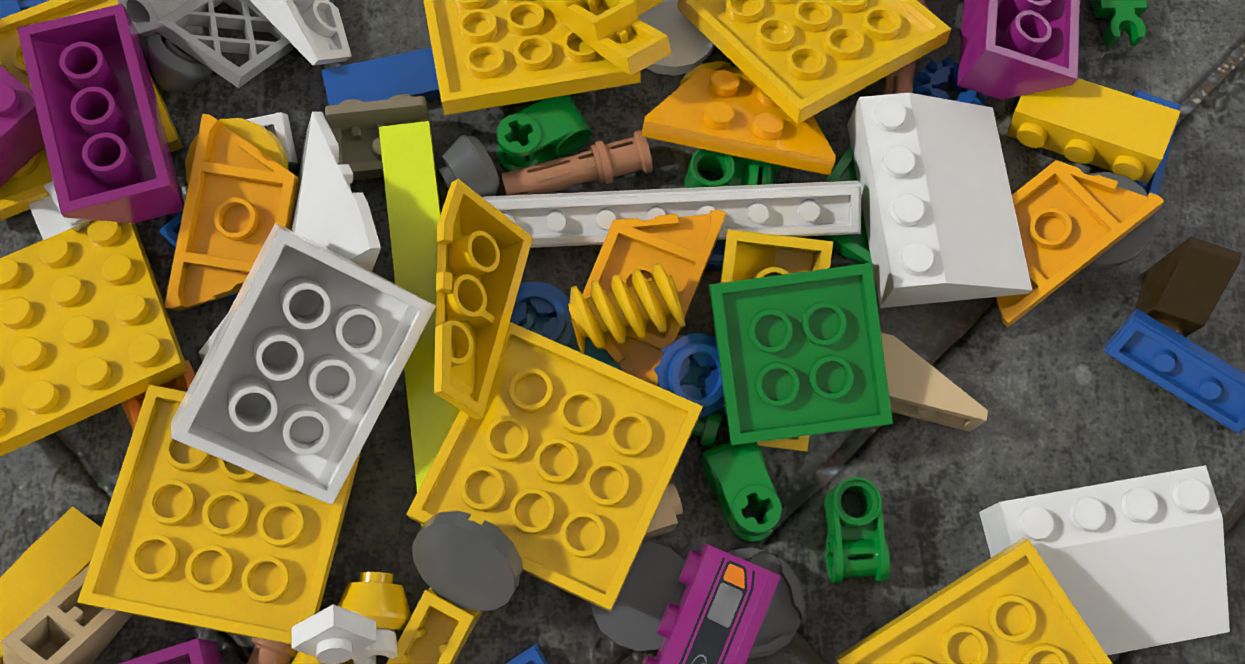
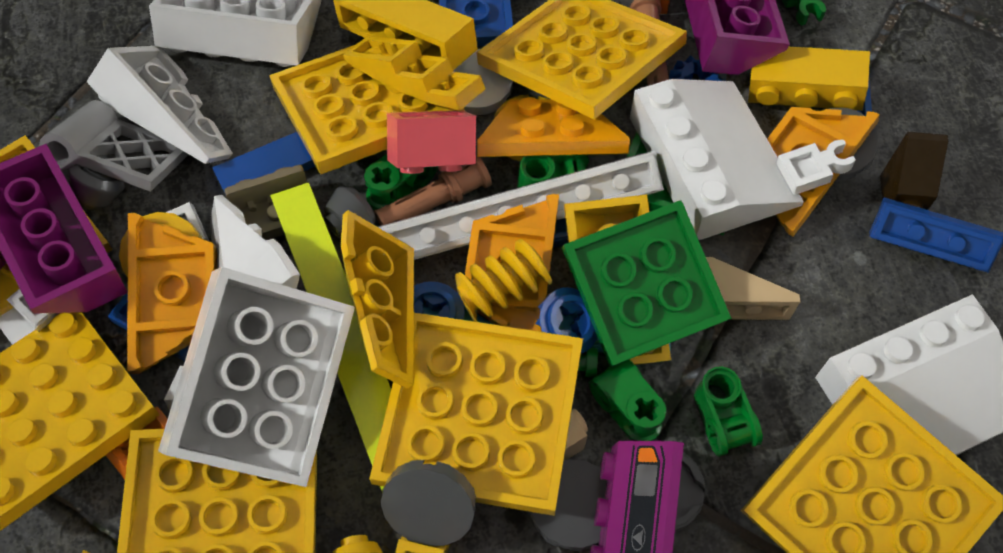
camera: 10 degrees left, 10 degrees down
(587, 104) = (431, 140): none -> coral brick
(1053, 250) = (810, 168): none -> white plate

